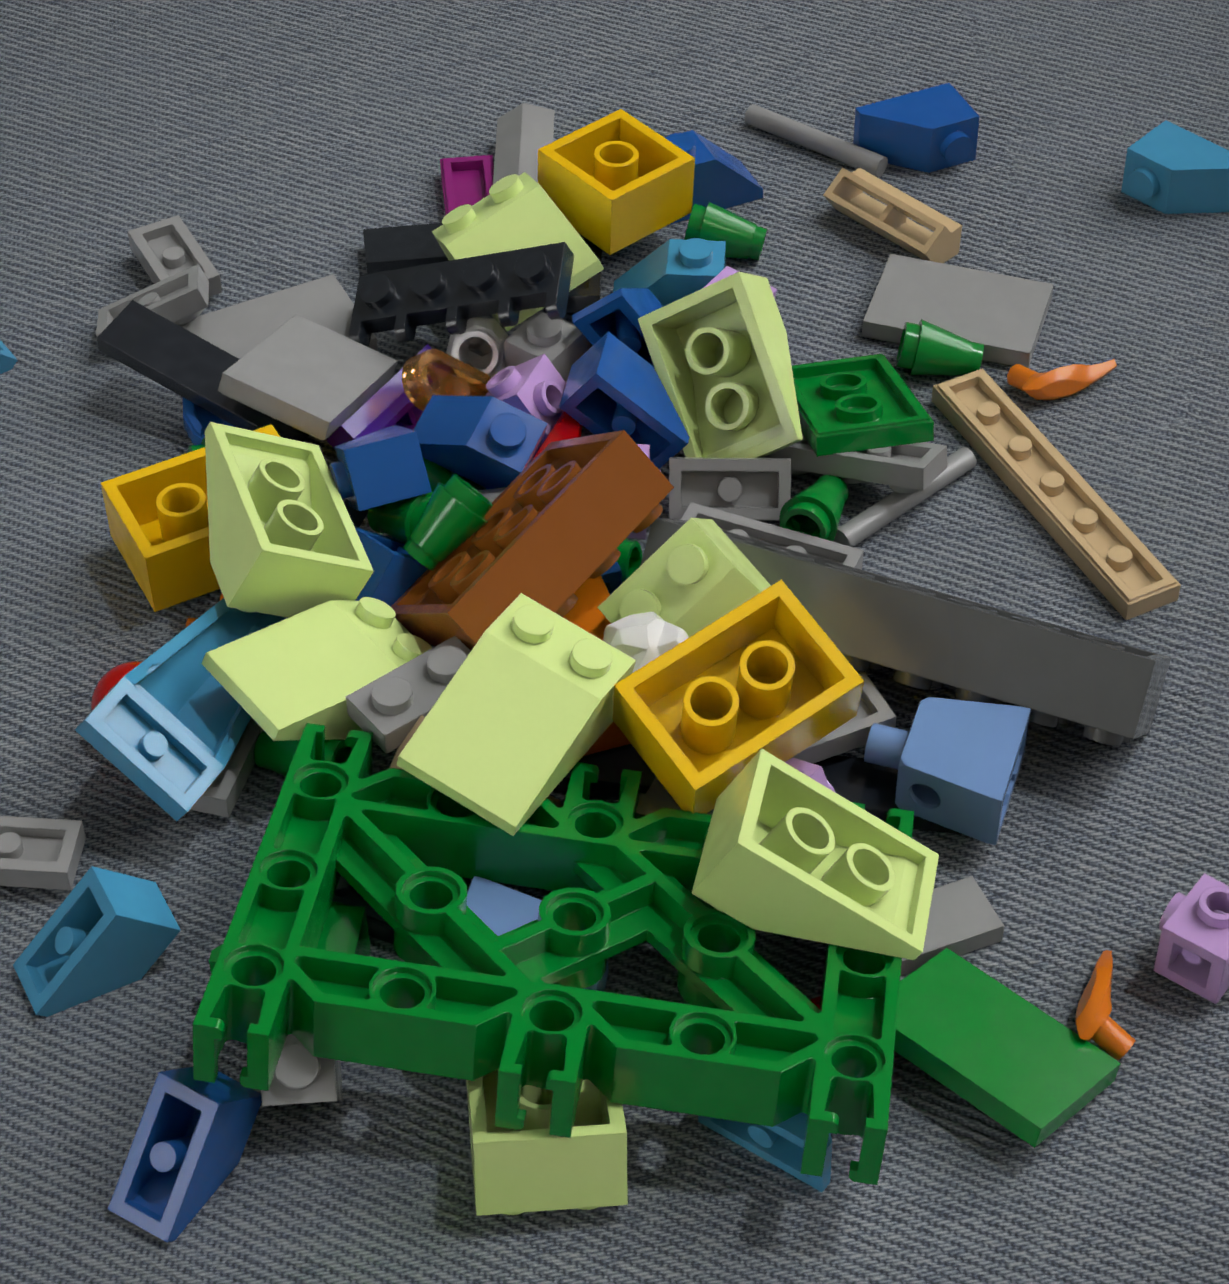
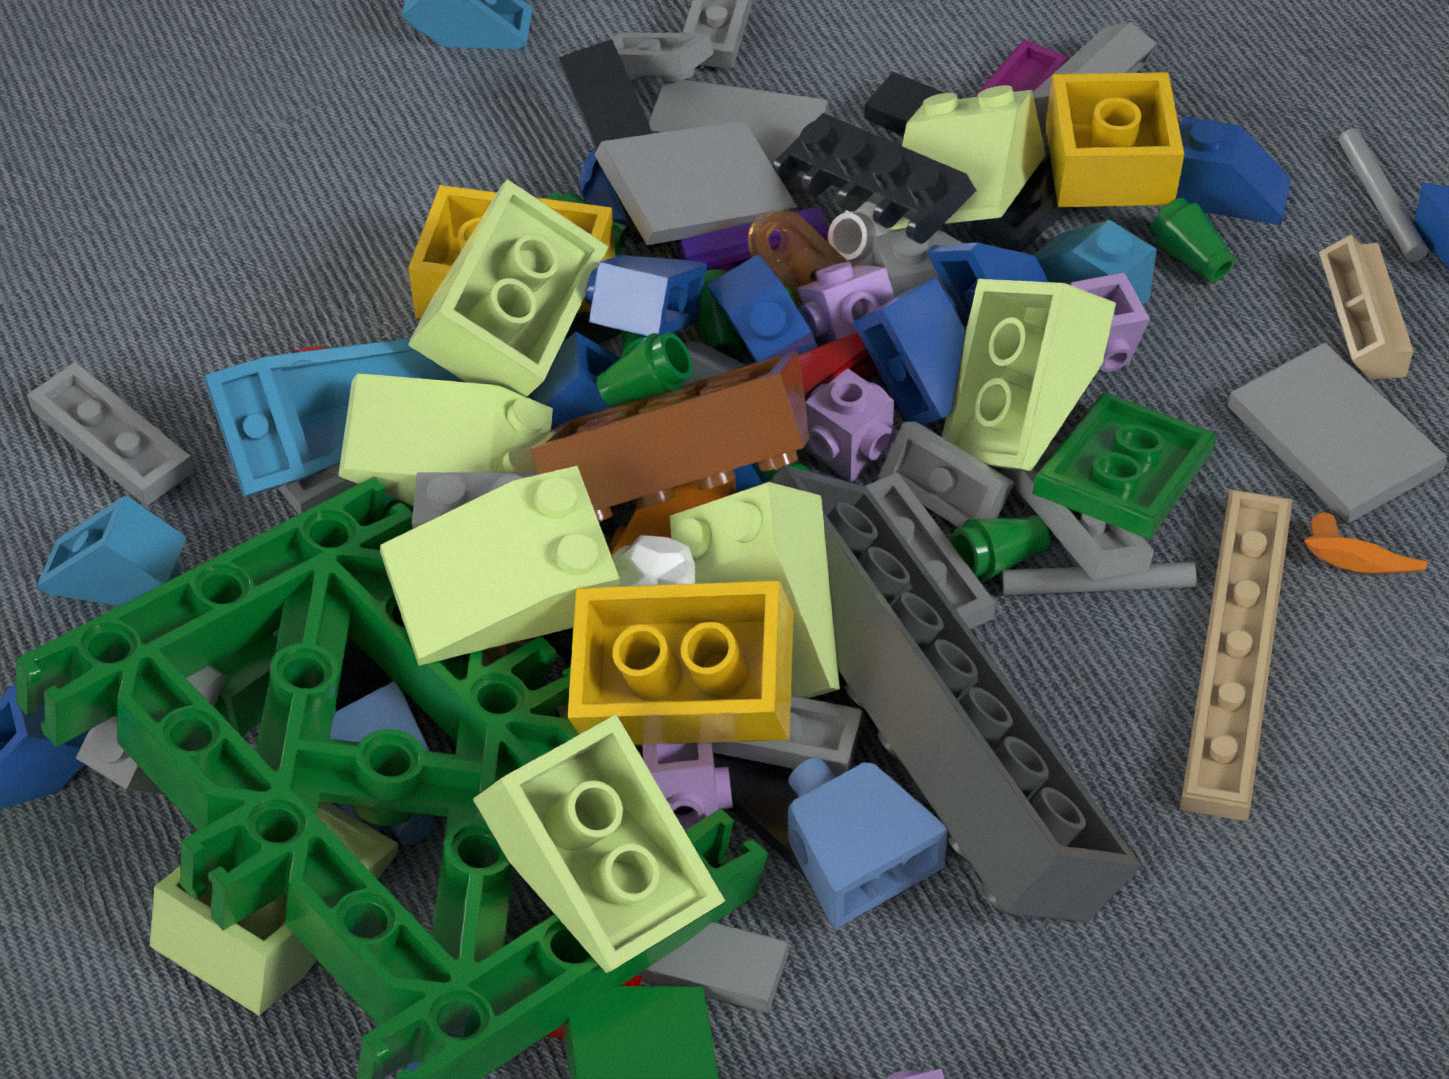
camera: 40 degrees right, 5 degrees up
(935, 351) = (1264, 458): green cone -> none

